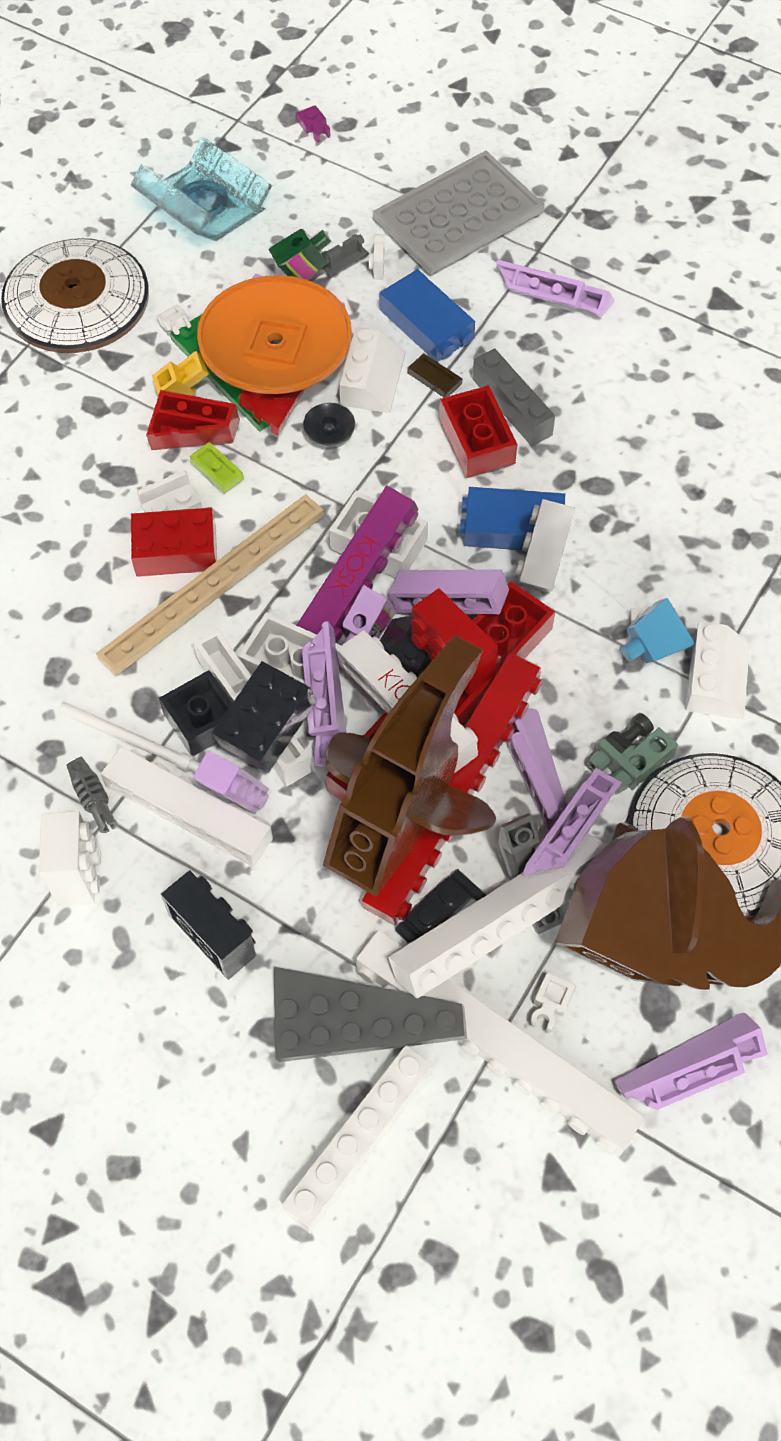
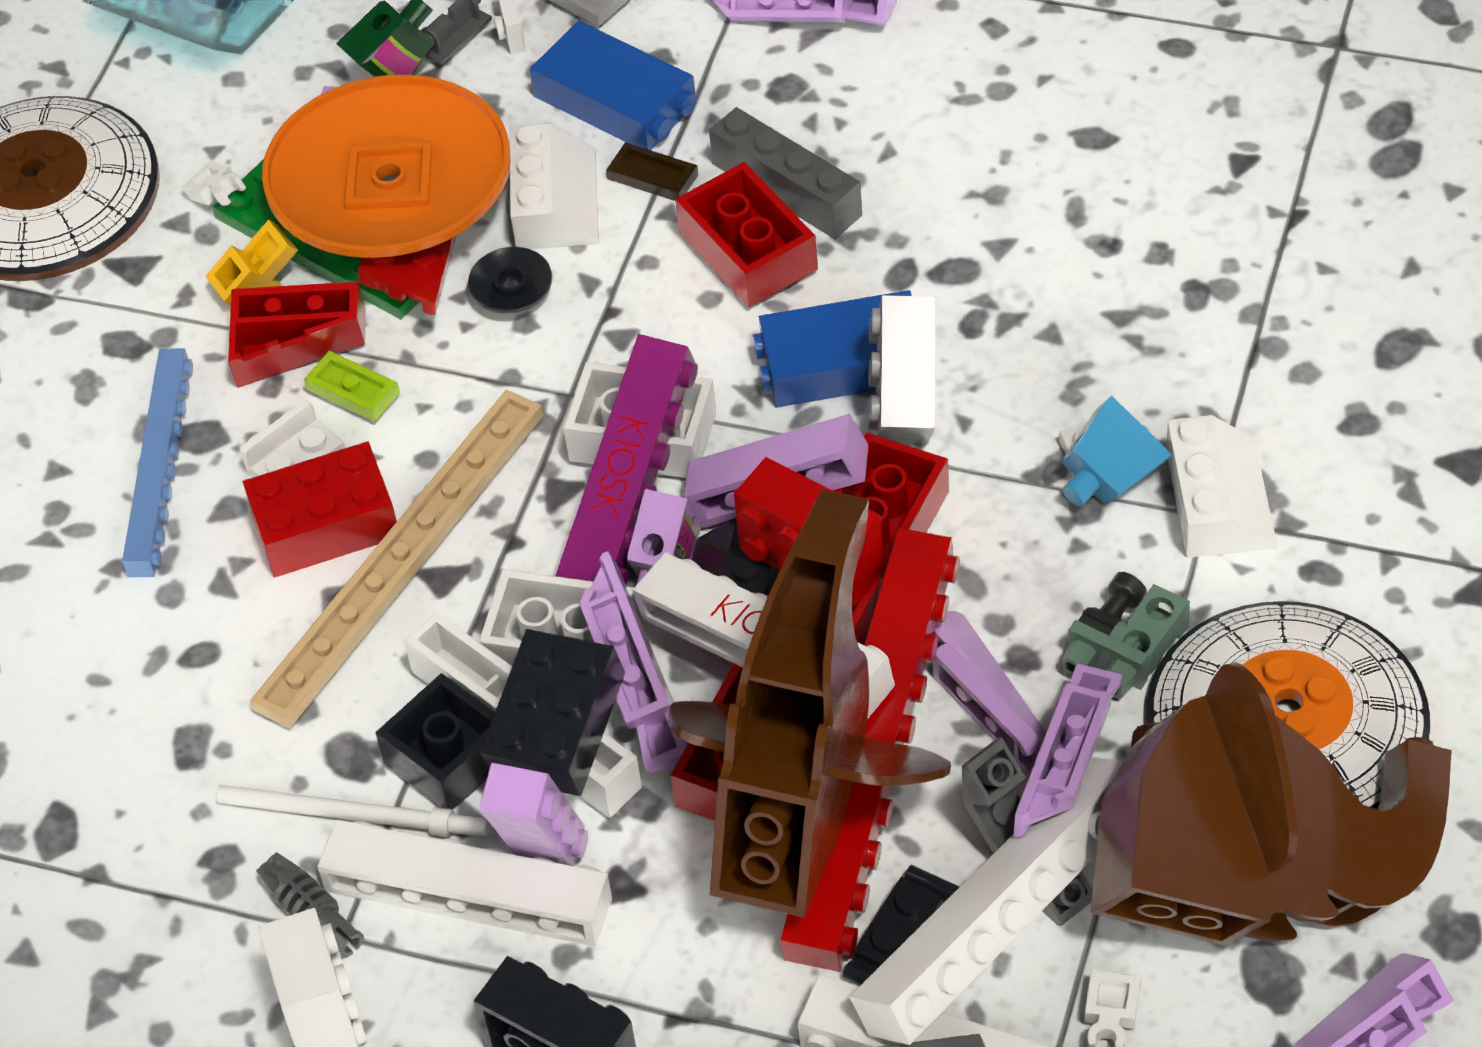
camera: 10 degrees left, 10 degrees down
(89, 486) = (157, 463): none -> medium blue piece

